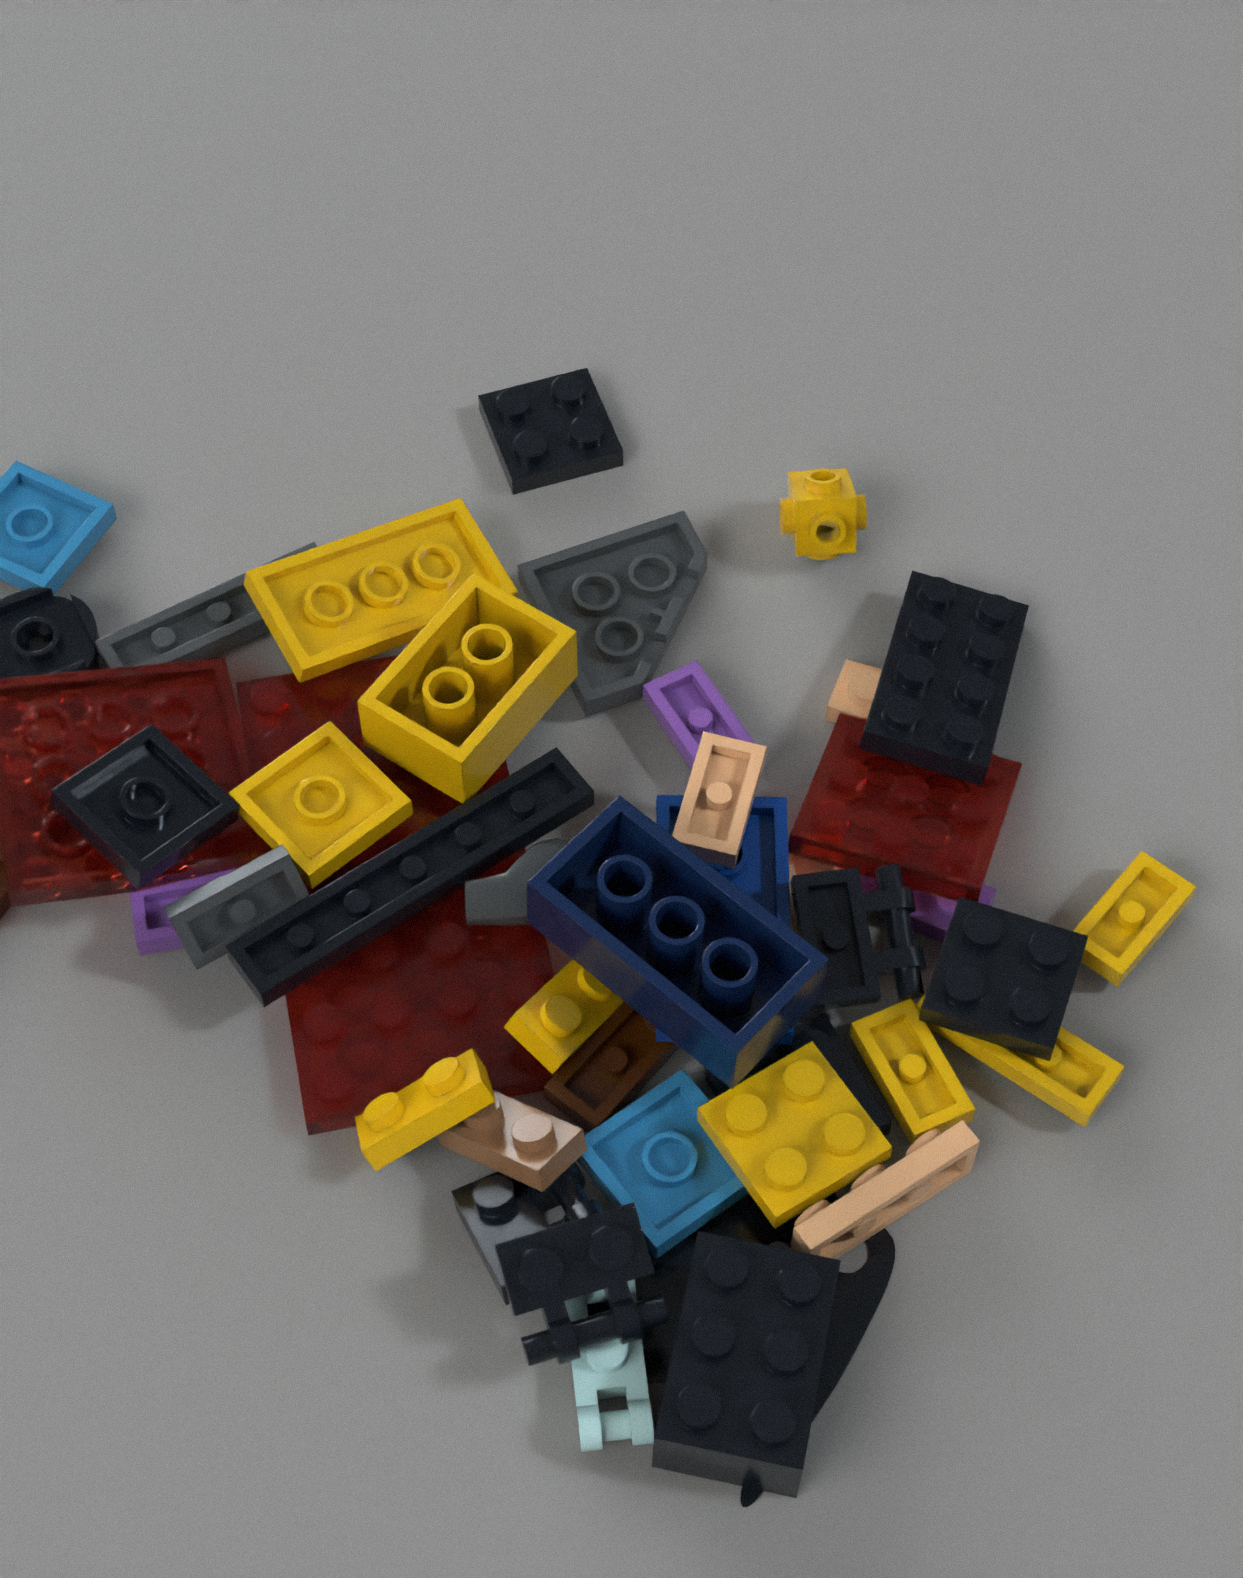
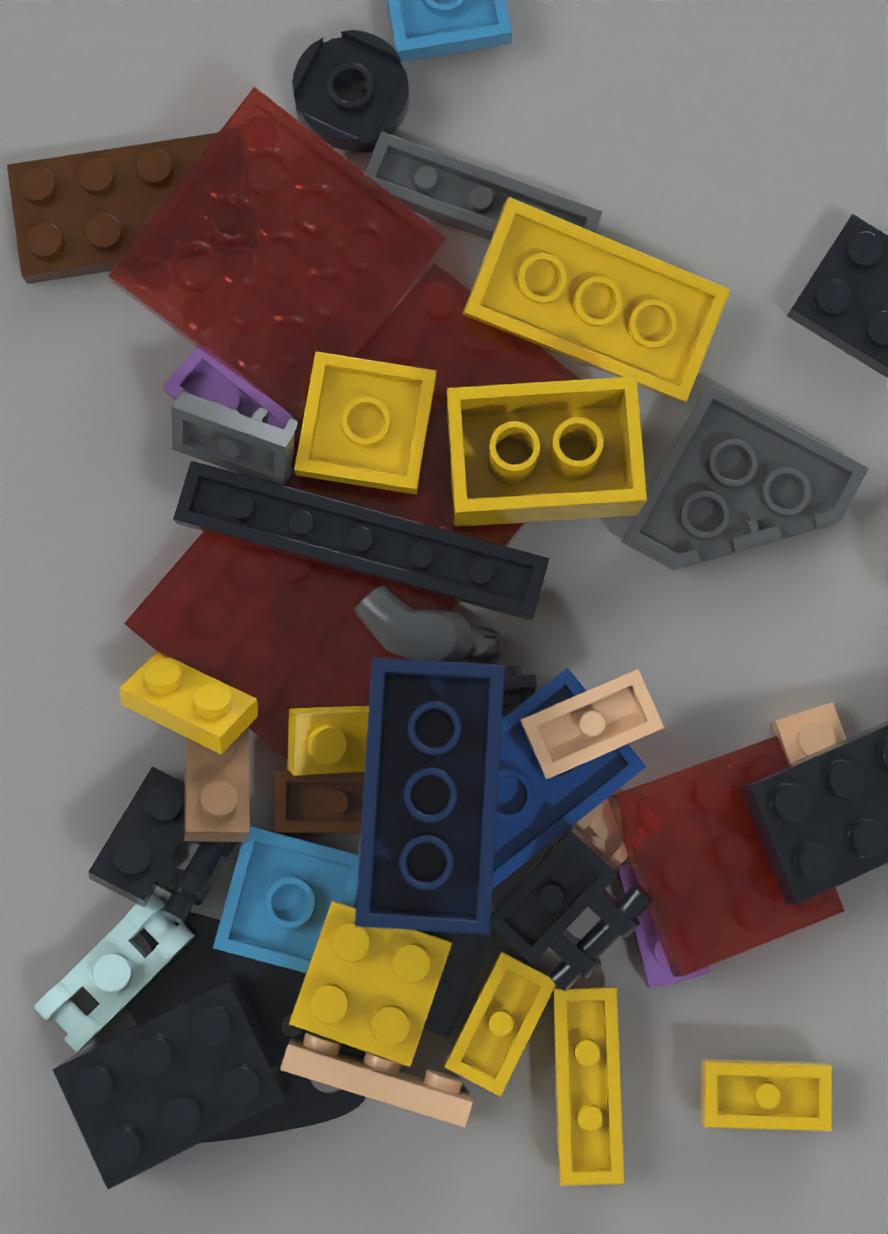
camera: 50 degrees right, 25 degrees up
(144, 805) = (254, 303): black plate -> none
(572, 1262) = (137, 911): black plate -> none
(687, 705) = (681, 635): medium lavender plate -> none
(1003, 978) = (625, 1043): black plate -> none

